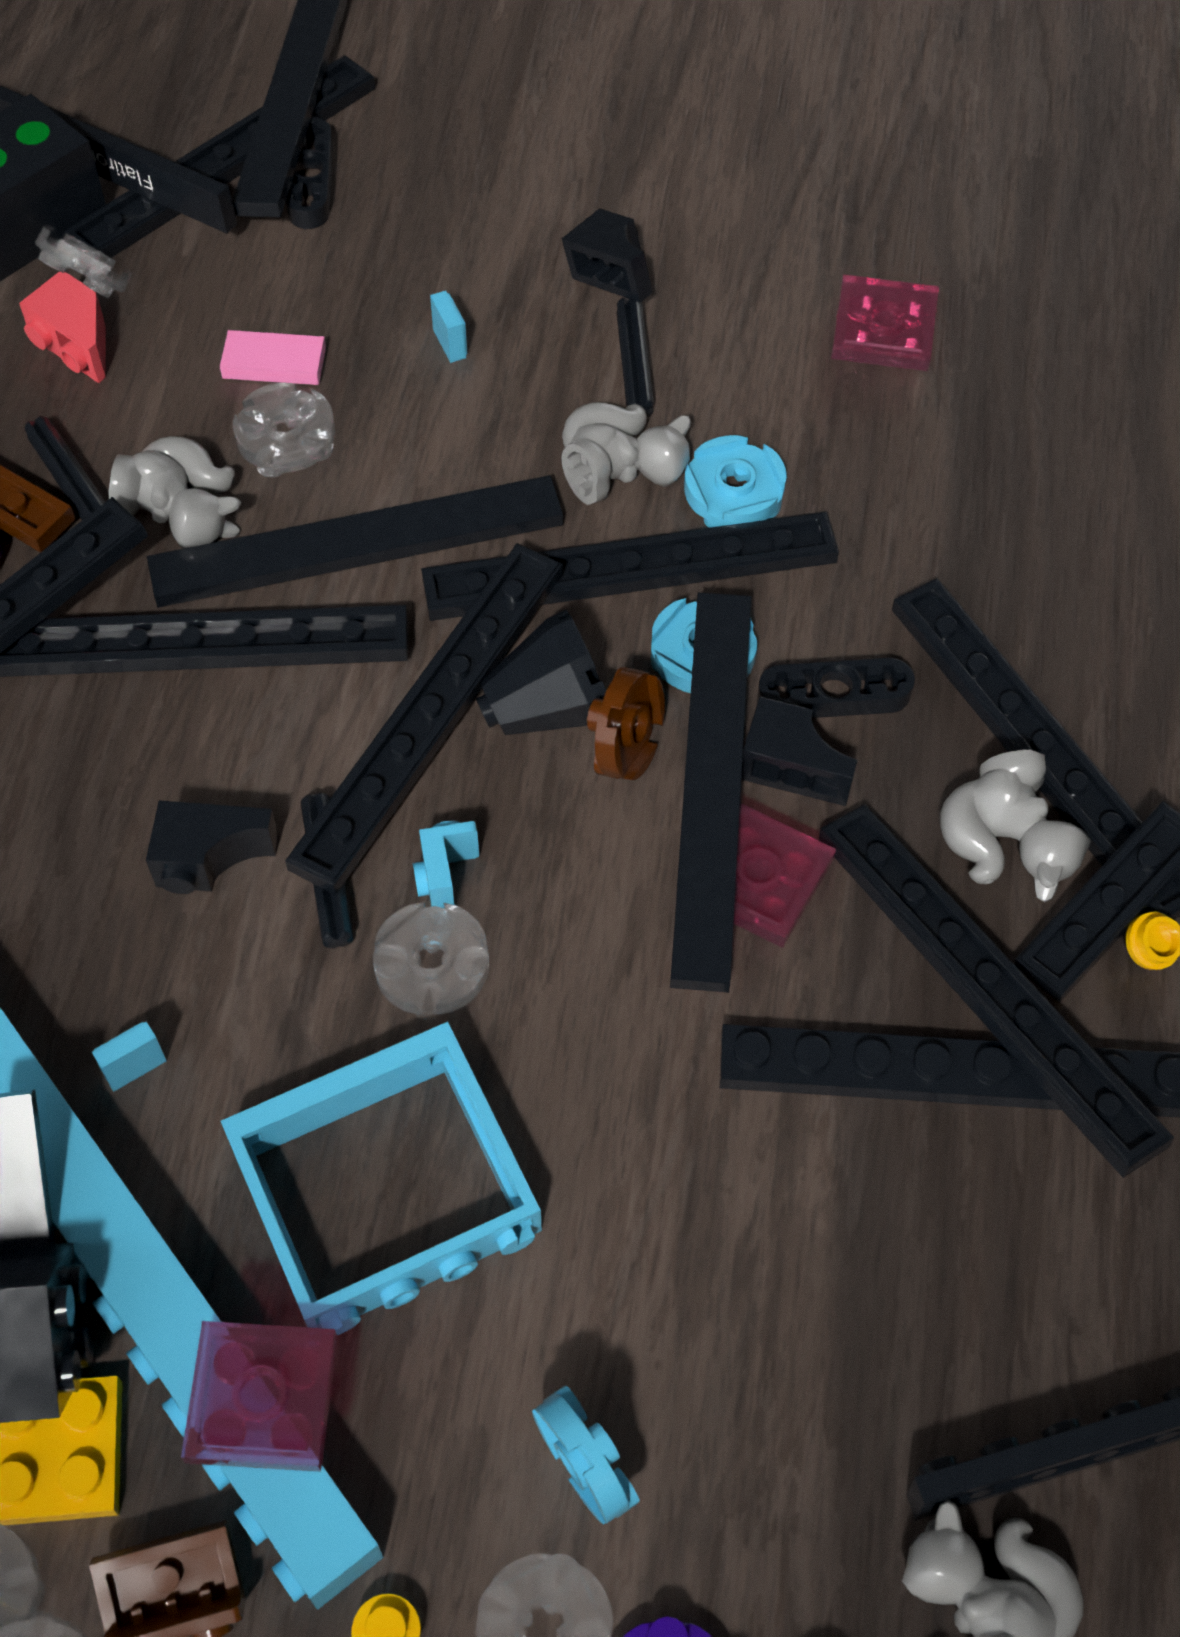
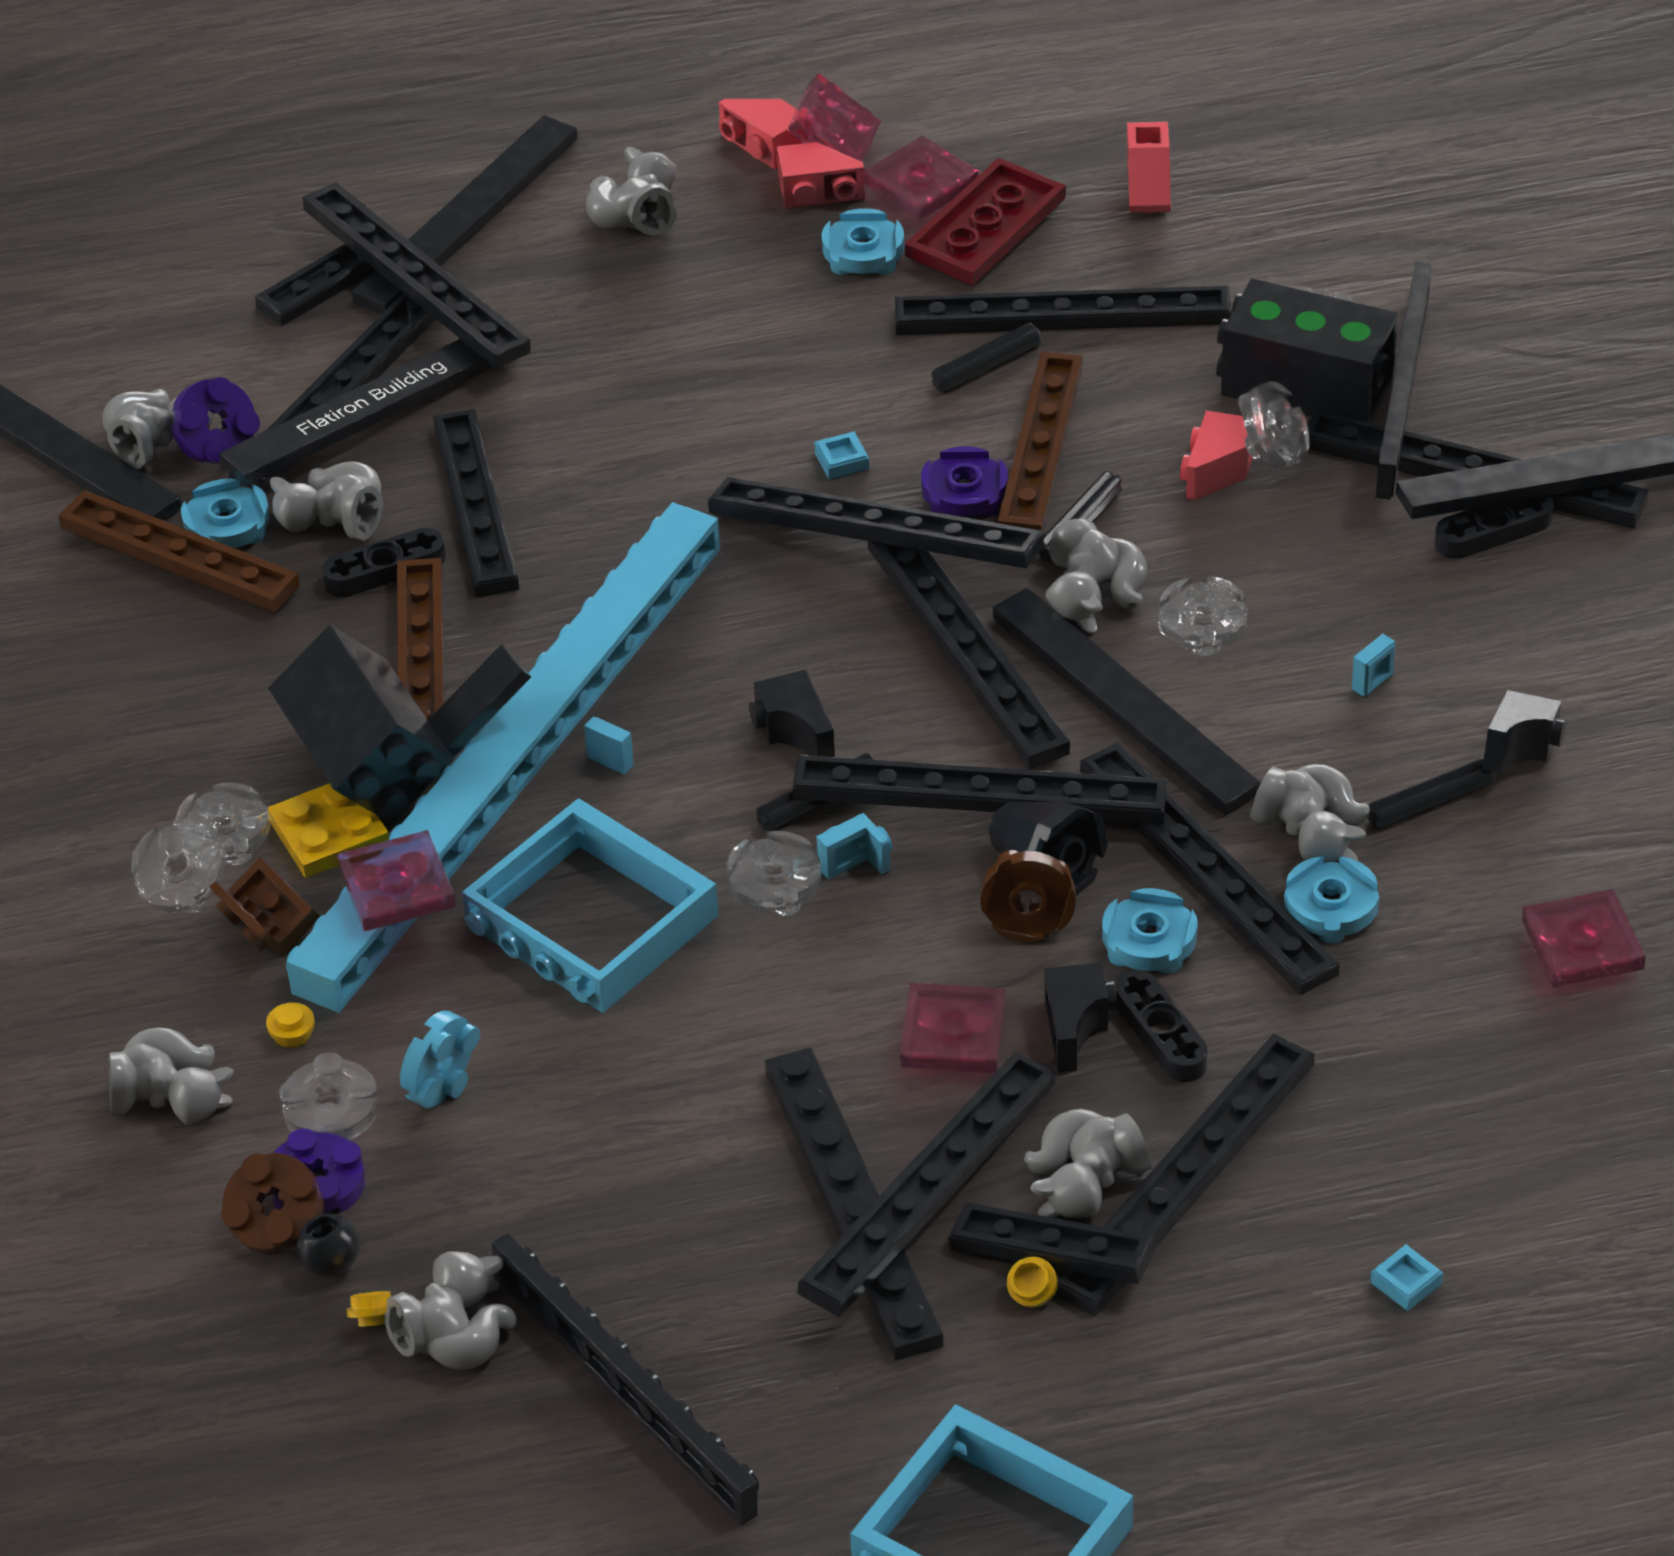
camera: 70 degrees right, 15 degrees down
(273, 357) = (1275, 581): bright pink tile -> none
(711, 796) = (1005, 964): black tile -> none

